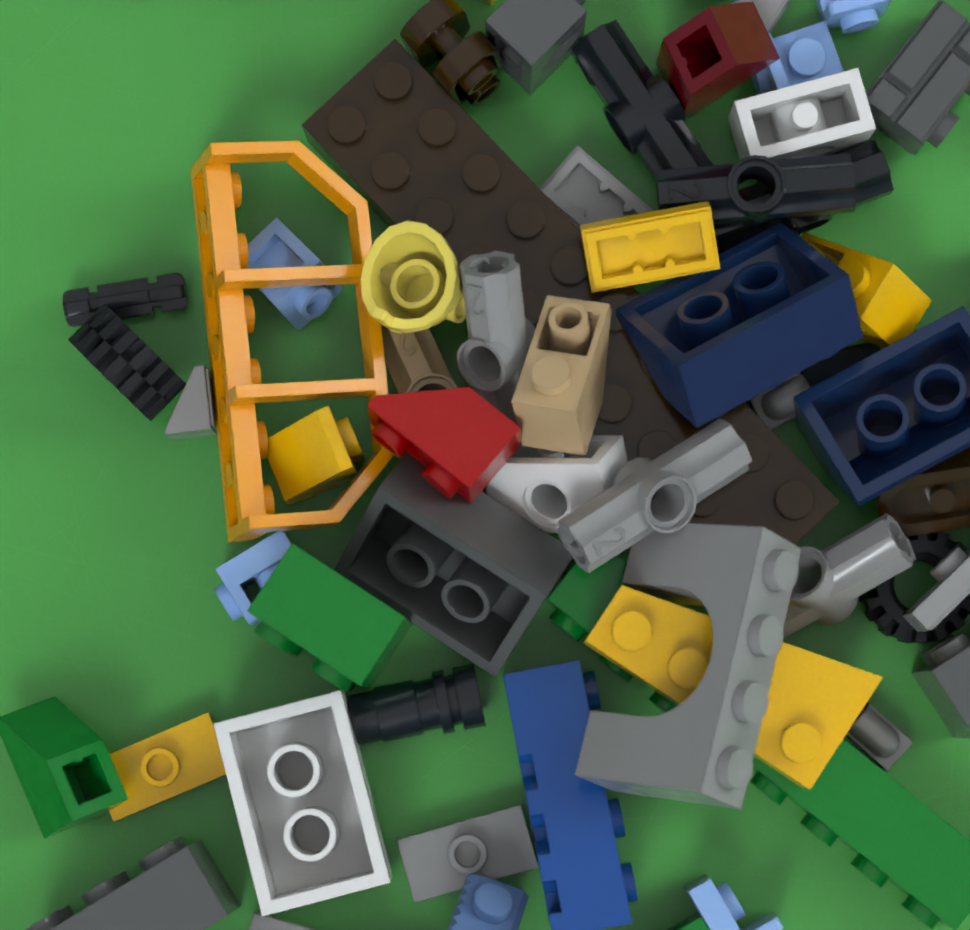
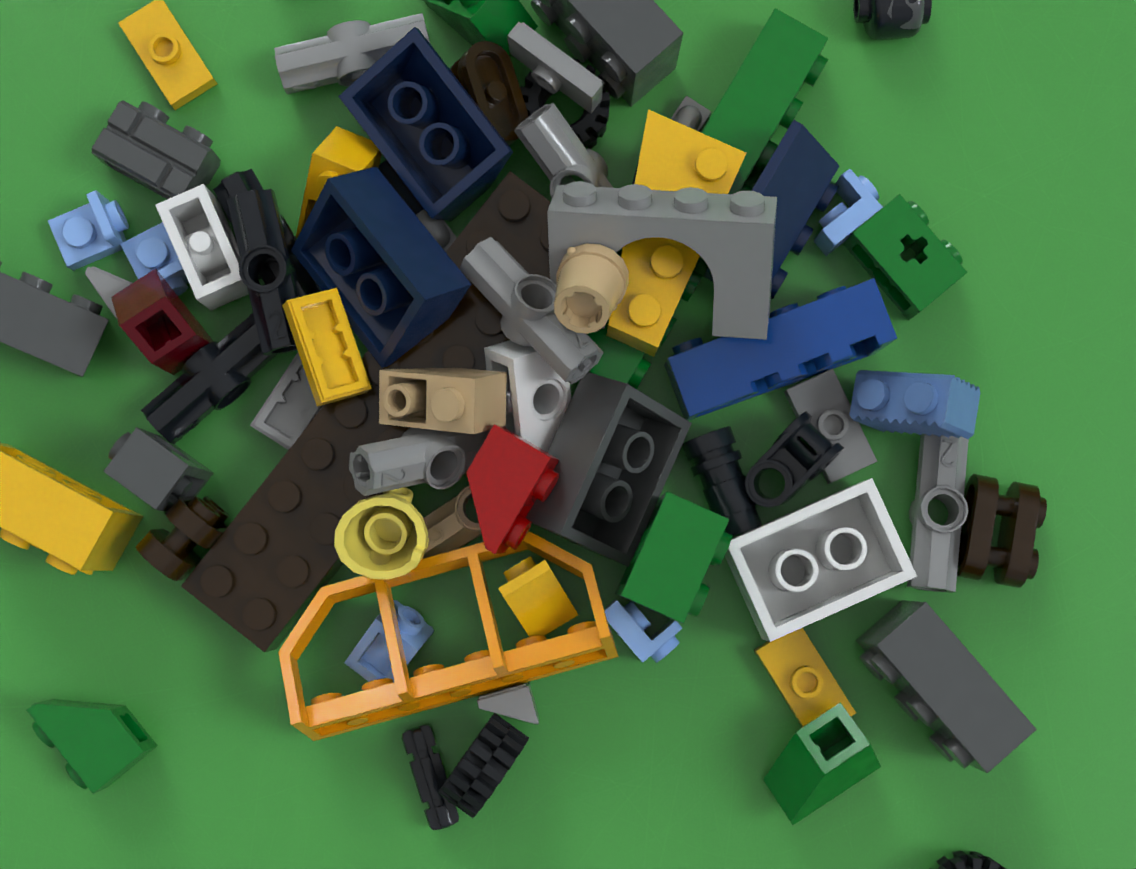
camera: 105 degrees left, 0 degrees up
(434, 799) = (792, 460): none -> black piece
(665, 564) = (589, 287): none -> tan piece
(761, 843) = (801, 181): none -> dark blue slope

